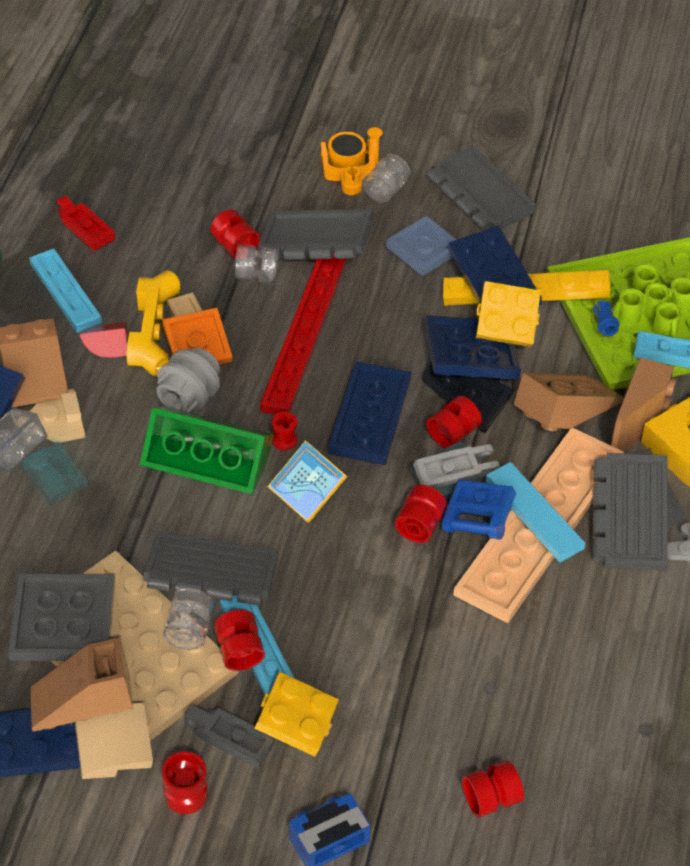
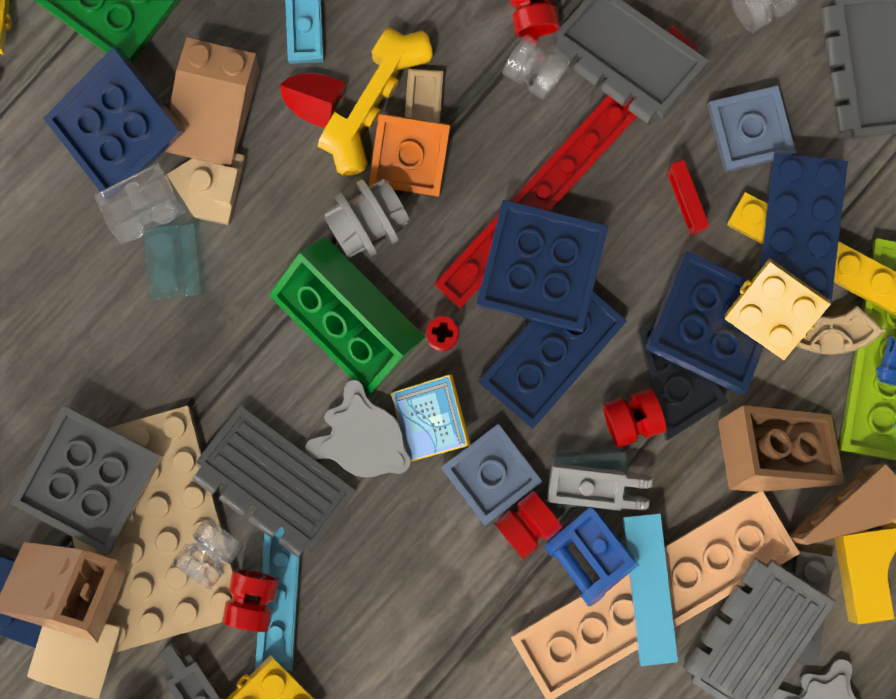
camera: 30 degrees right, 35 degrees up
(263, 516) = (362, 437): none -> light grey tile
(331, 359) = (542, 266): none -> dark blue plate
(372, 499) = (491, 474): none -> sand blue plate
(407, 294) = (687, 198): none -> red tile
(559, 324) = (841, 333): none -> tan tile

